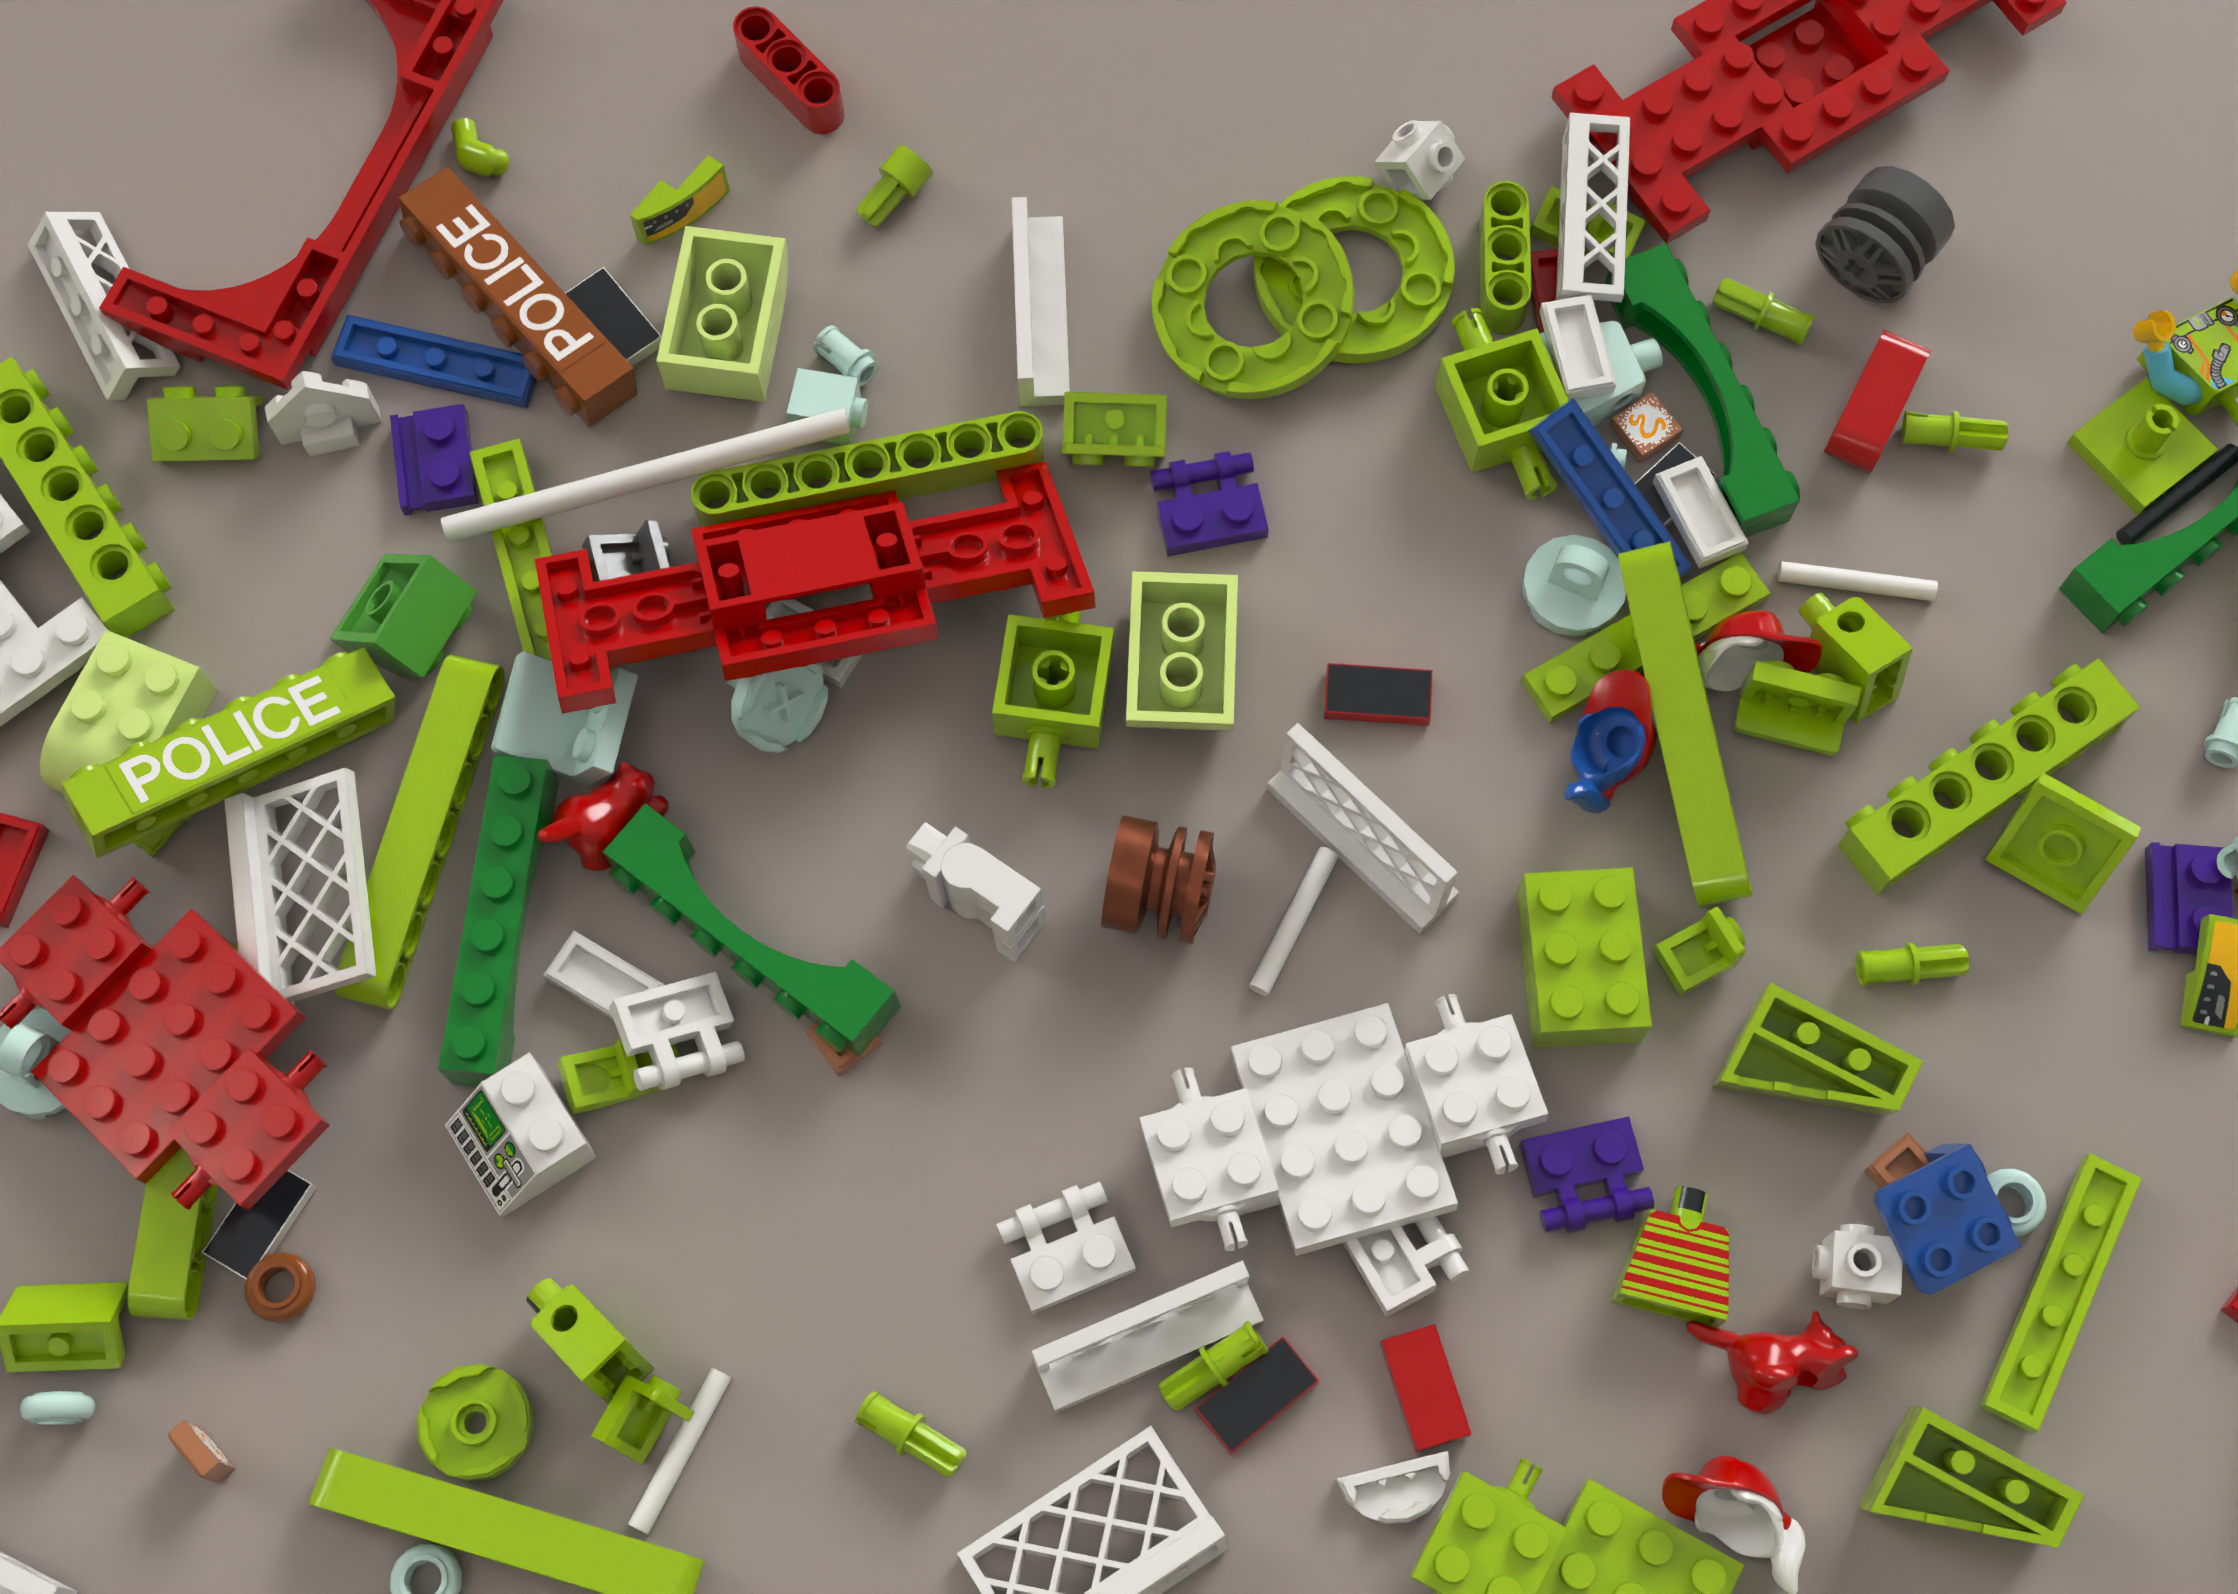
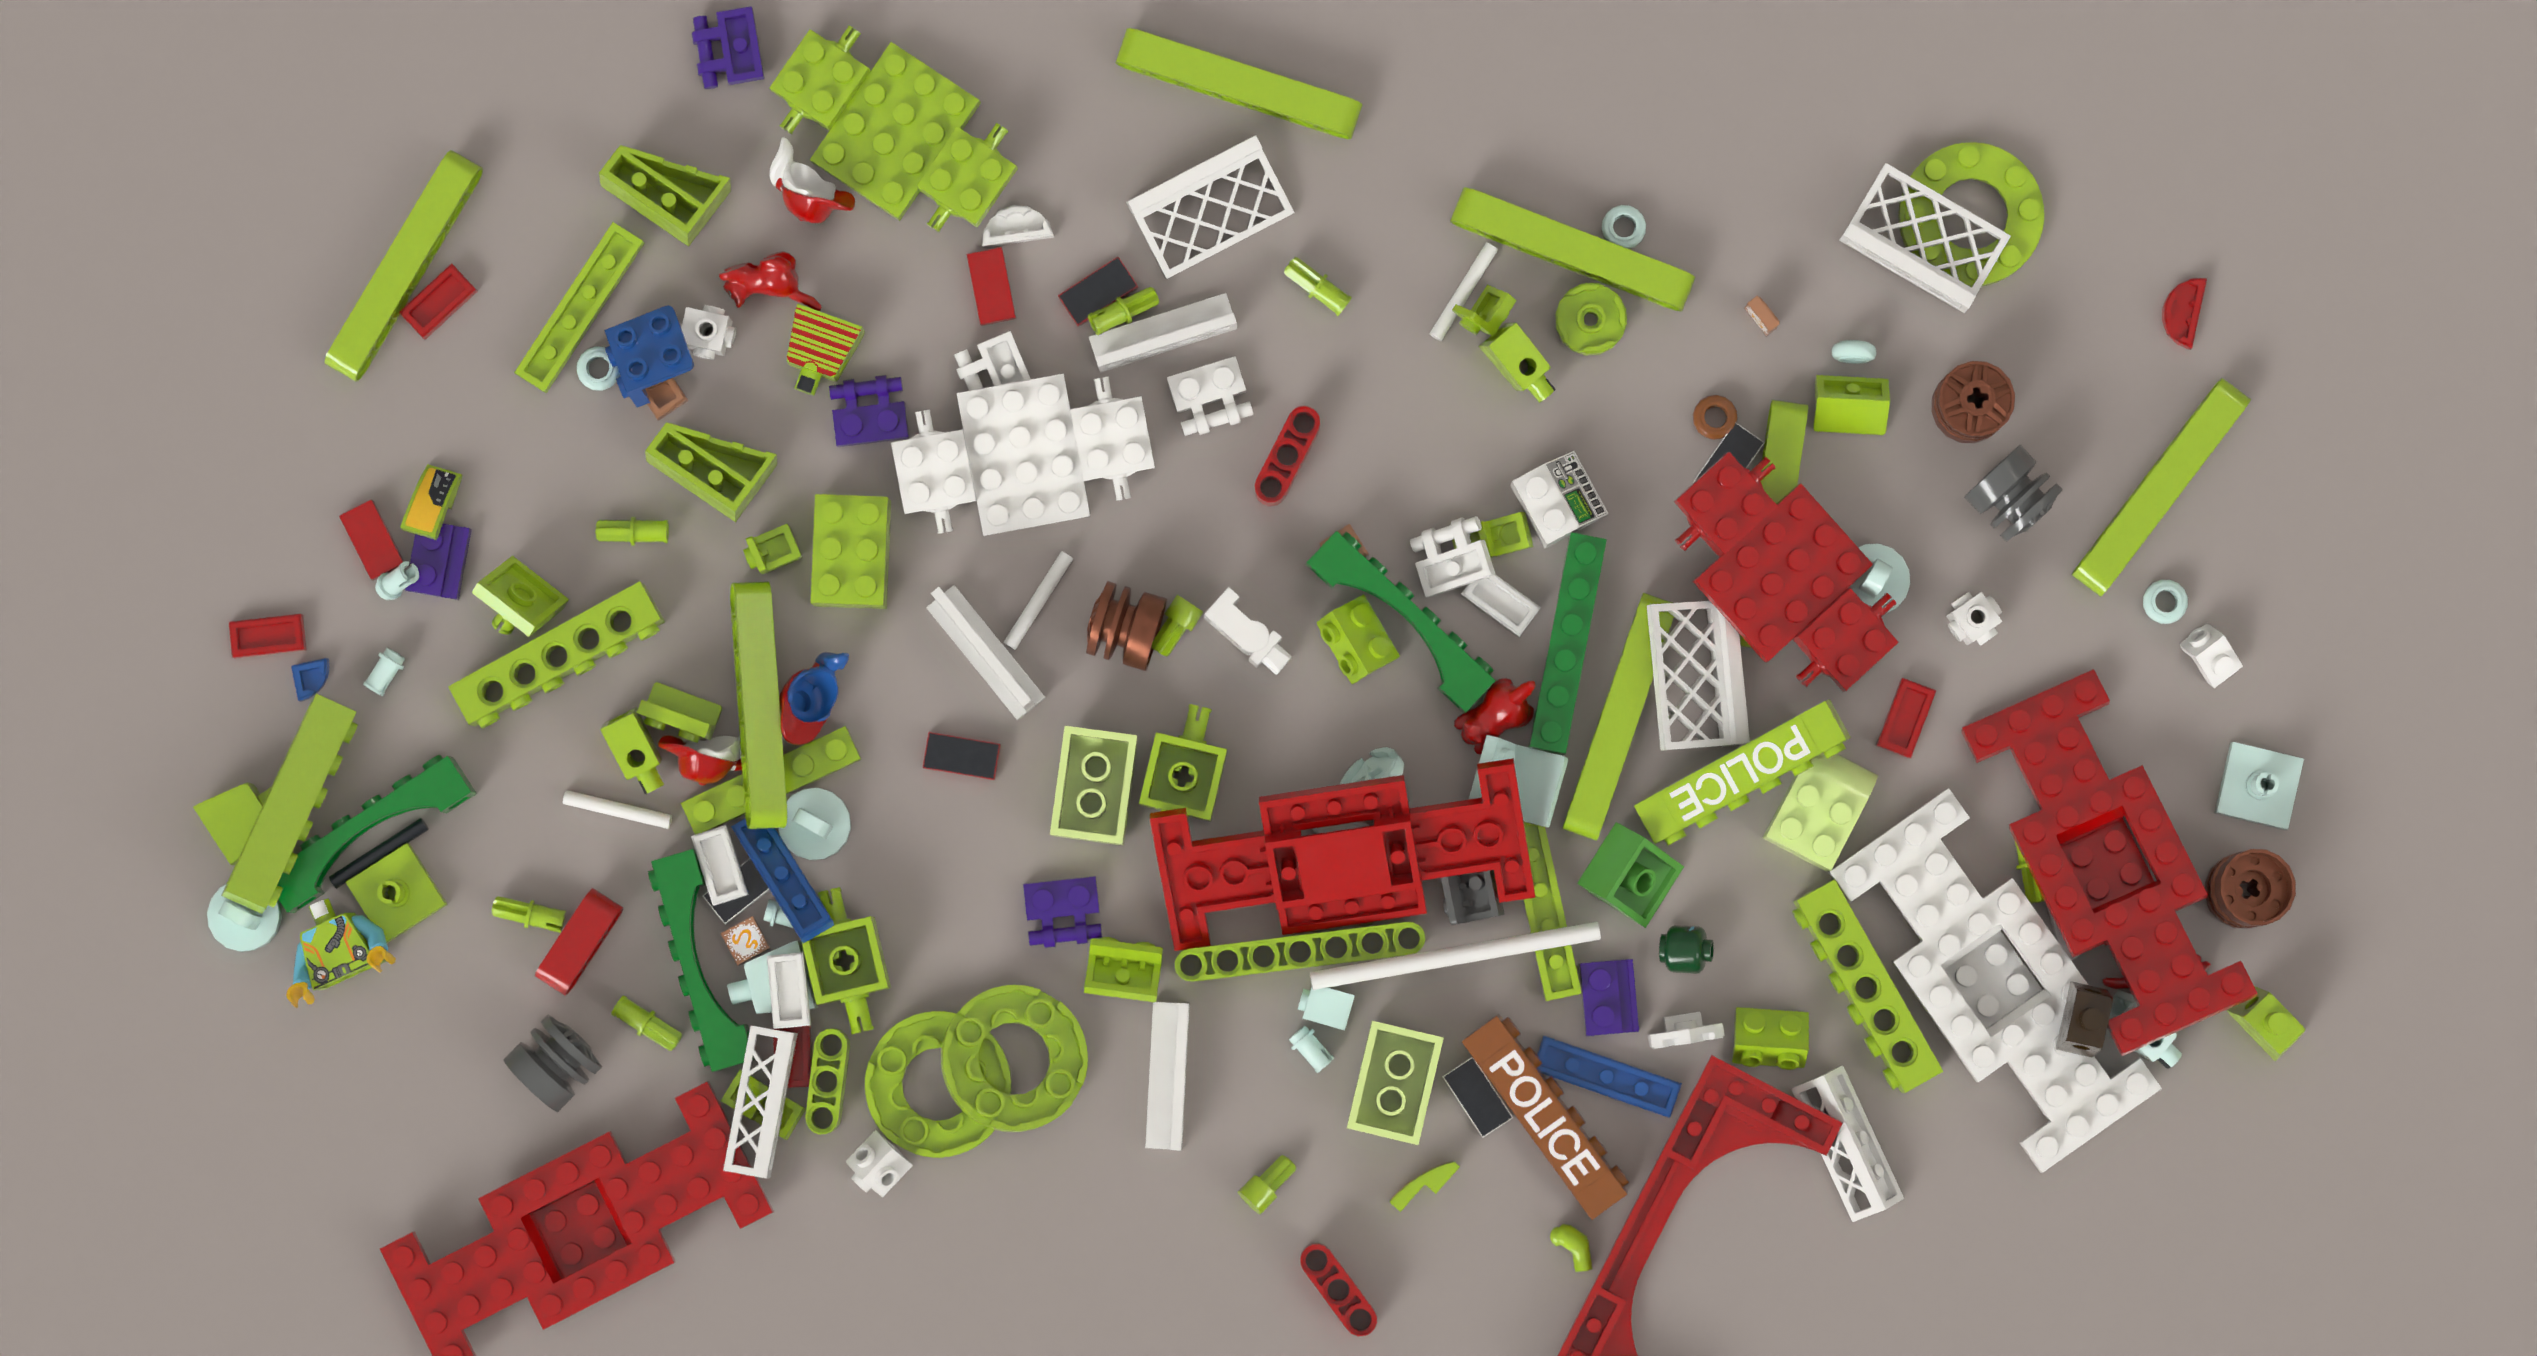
camera: 170 degrees left, 15 degrees up
(322, 522) = (1685, 949): none -> dark green head
(813, 903) = (1357, 639): none -> lime bracket
(936, 1135) = (1287, 438): none -> red beam
(1080, 910) = (1181, 616): none -> lime piece

